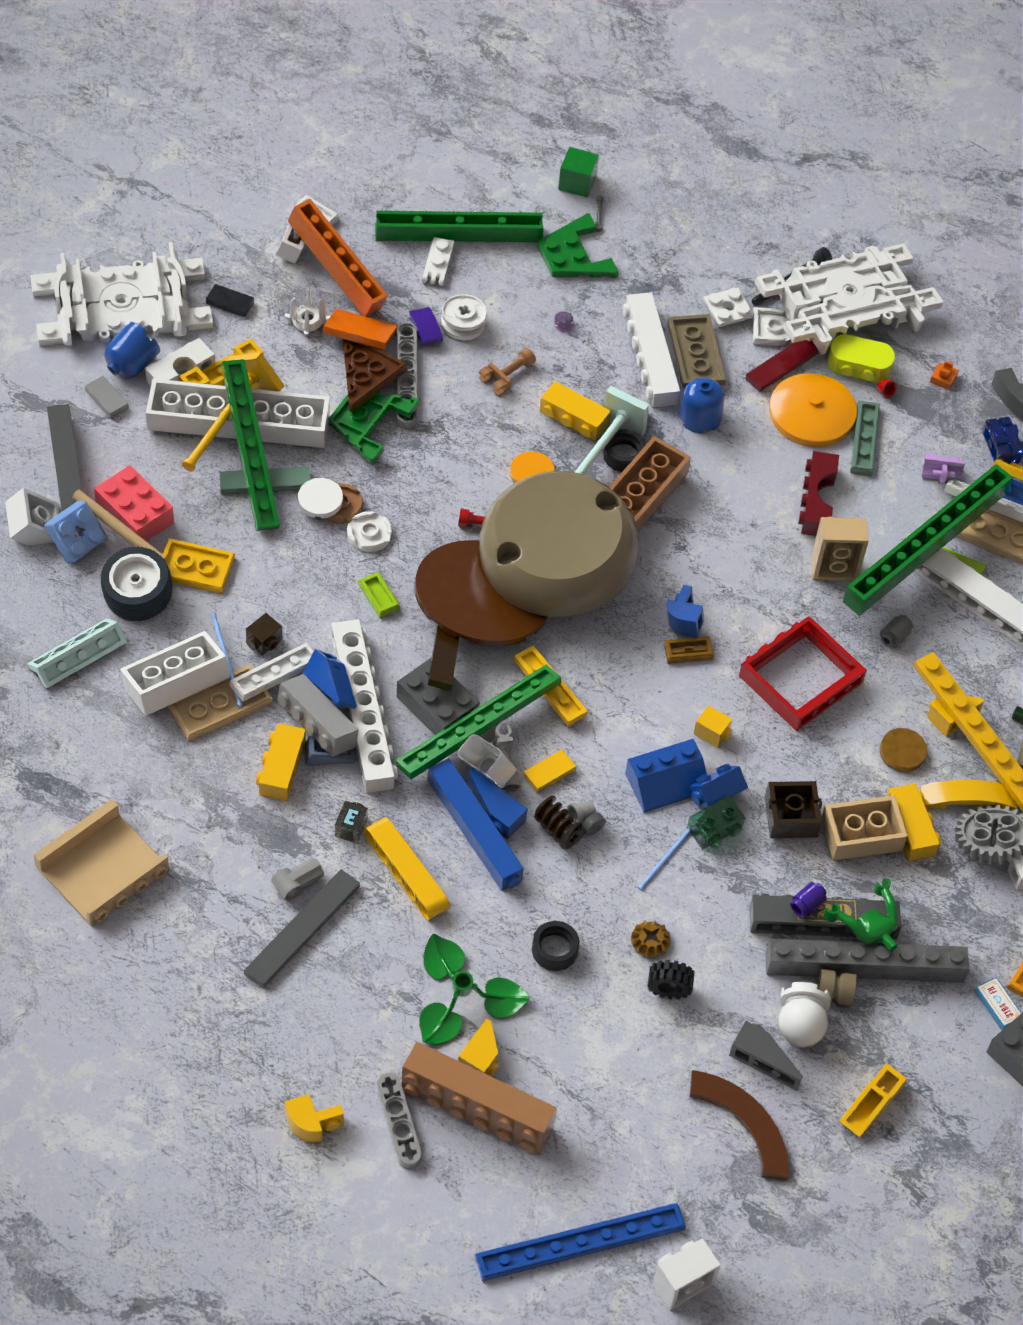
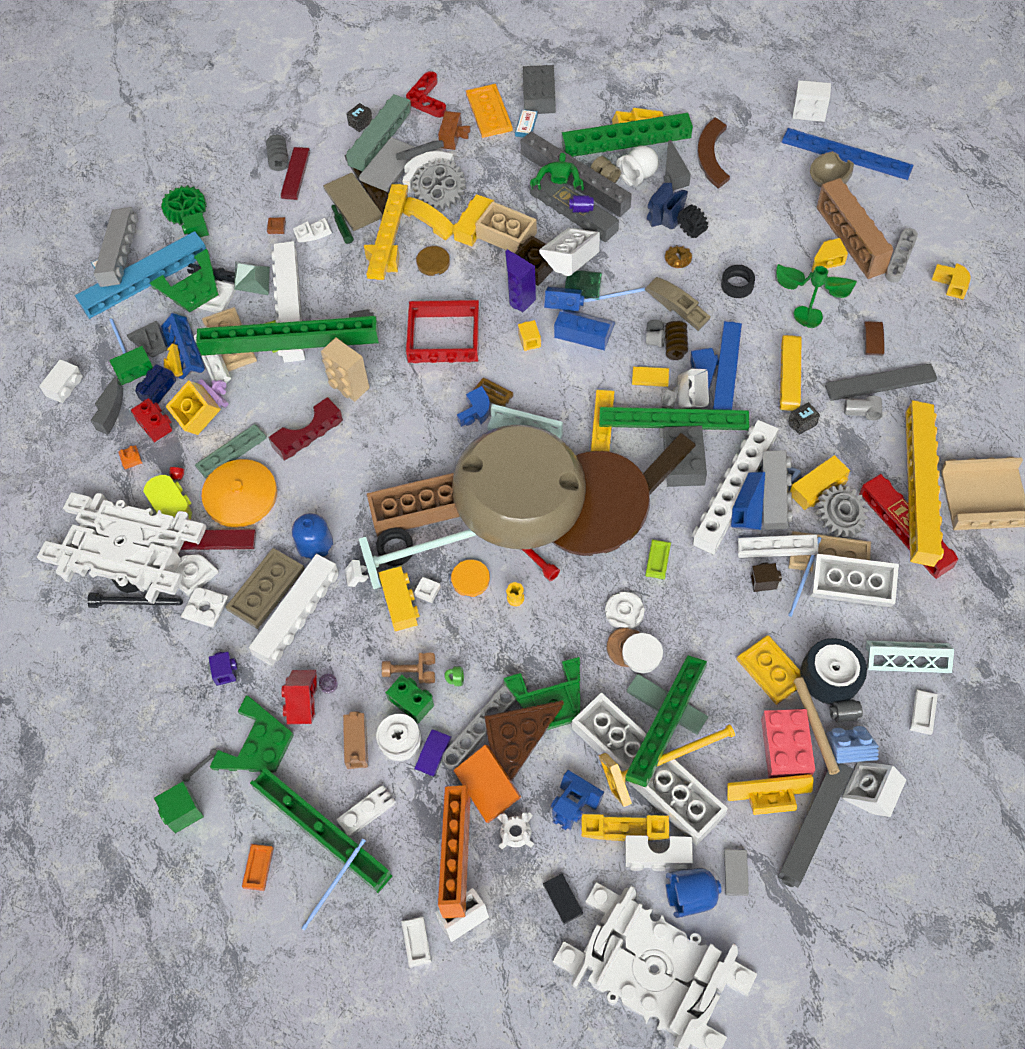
camera: 130 degrees left, 5 degrees up
(31, 614) = (923, 712): none -> white tile
(96, 565) = (846, 710): none -> dark grey brick
(119, 457) = (771, 794): none -> yellow bracket
(161, 773) = (895, 513): none -> red brick
(177, 814) = (923, 484): none -> yellow brick
(237, 740) = (841, 498): none -> light grey gear
(280, 339) = (567, 811): none -> blue tile
(349, 976) = (874, 338): none -> reddish brown slope
(410, 198) = (333, 884): none -> light blue piece
(462, 386) = (458, 676): none -> bright green tile
(480, 479) = (512, 589): none -> yellow bush
(481, 183) = (257, 867): none -> orange tile
(483, 346) = (410, 698): none -> green brick
(495, 293) = (355, 740): none -> medium nougat brick
(558, 435) = (427, 589): none -> white plate
(571, 1170) = (829, 168): none -> dark tan cylinder
(574, 288) = (299, 696): none -> red brick
(597, 863) = (678, 300): none -> dark tan slope
(620, 632) = (509, 416): none -> light aqua fence
(658, 274) = (222, 668): none -> dark purple brick
(716, 974) = (665, 206): none -> dark blue piece
(762, 831) = (571, 250): none -> white slope
(778, 753) = (520, 281): none -> dark purple slope
(814, 1130) = (627, 135): none -> green brick
(937, 435) = (193, 407): none -> yellow brick
(968, 413) = (151, 420): none -> red brick

